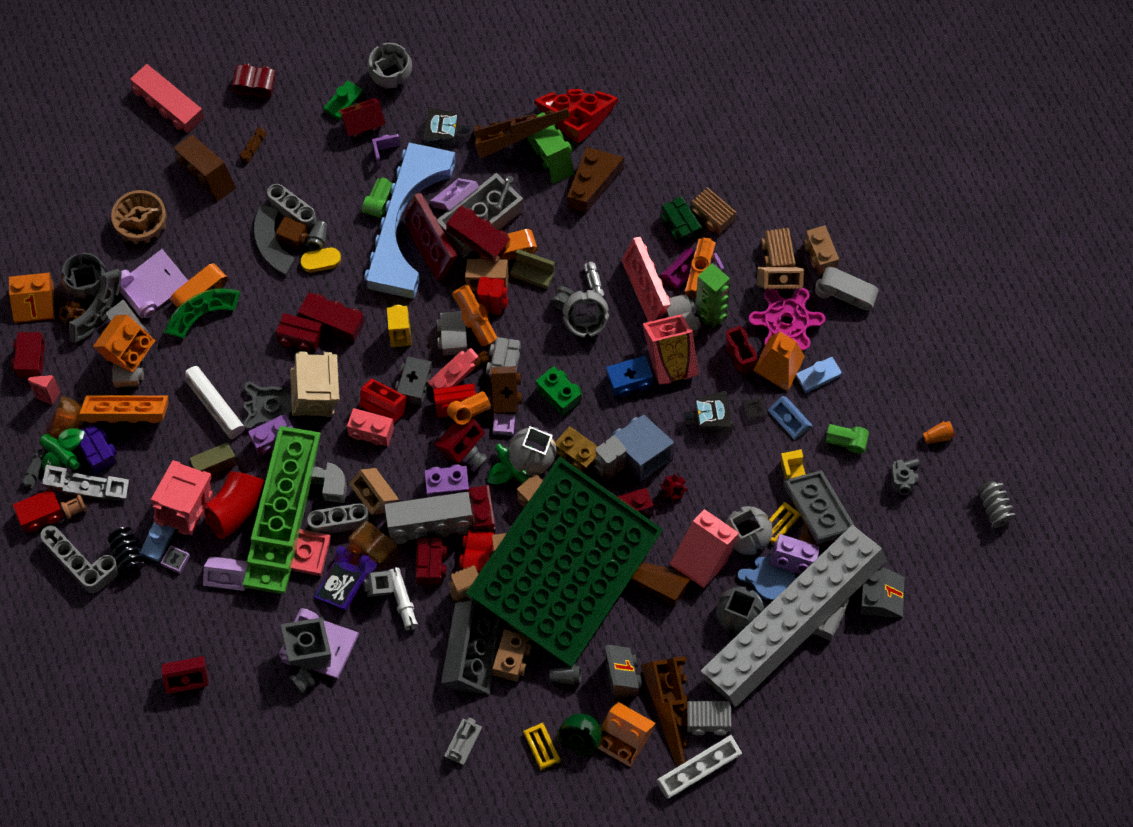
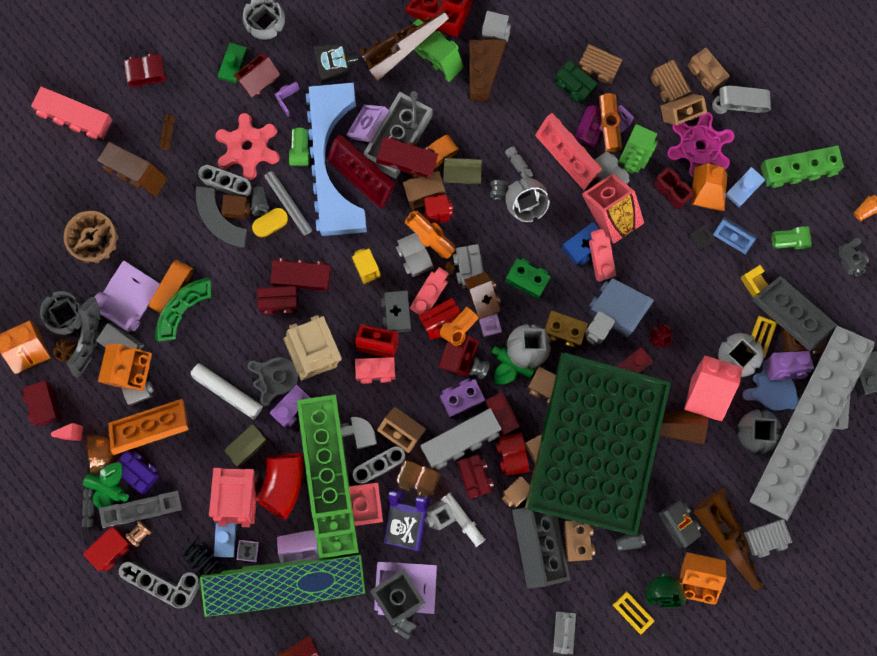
camera: 20 degrees left, 15 degrees up
(197, 598) = (282, 584): none -> dark blue slope
(336, 190) = (247, 158): none -> coral plate
(346, 247) = (288, 203): none -> light grey axle
(617, 142) = (496, 27): none -> light grey brick
(641, 390) = (602, 255): none -> coral hinge
(698, 766) = (776, 586): white brick -> none
(711, 414) = (668, 256): clear smoke torso -> none
(884, 371) = (802, 166): none -> bright green brick

